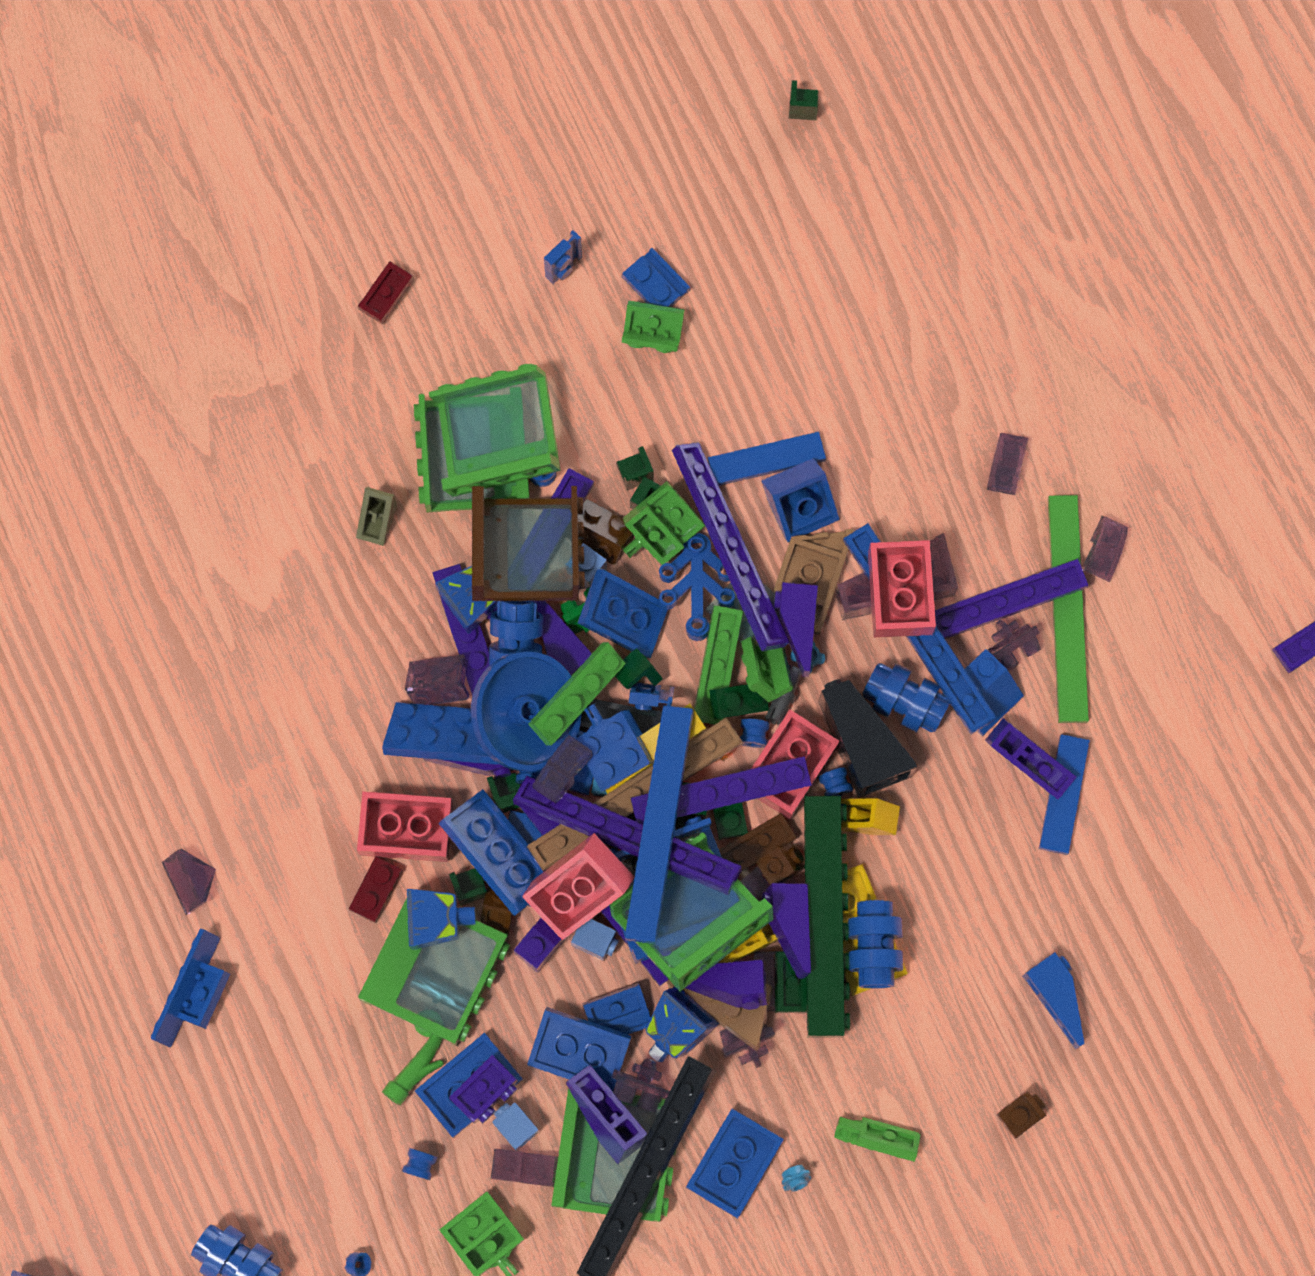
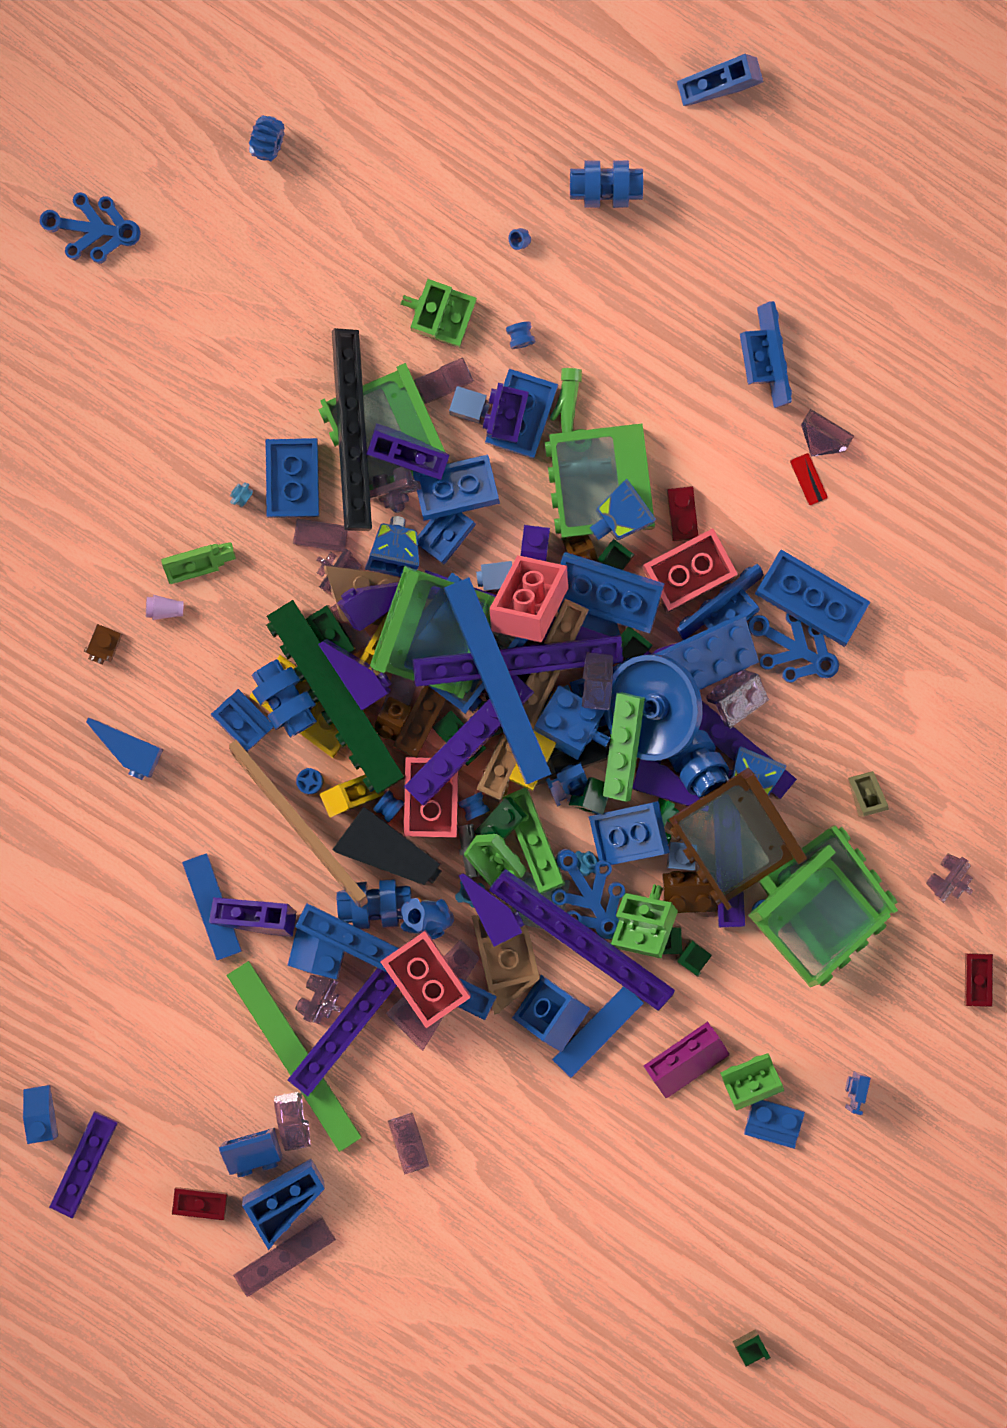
camera: 150 degrees right, 10 degrees up
(233, 848) = (808, 479): none -> red sticker
(305, 730) = (812, 598): none -> blue plate
(338, 401) = (957, 869): none -> hips
(351, 692) = (797, 648): none -> blue plant
(390, 771) = (726, 605): none -> blue bracket
(679, 615) = (586, 863): none -> dark azure plate
(700, 384) = (686, 1060): none -> magenta panel
(741, 1089) = (320, 535): none -> tile
(864, 652) = (427, 916): none -> blue animal
(901, 850) = (307, 778): none -> blue wheel
(928, 953) = (242, 720): none -> blue plate
(935, 816) = (298, 824): none -> medium nougat tile
(941, 1113) = (161, 608): none -> lavender cone
(1157, 481) = (282, 1200): none -> blue wedge
(1161, 543) = (251, 1152): none -> blue slope
(1185, 433) = (284, 1257): none -> tile
(1237, 527) = (199, 1203): none -> dark red plate

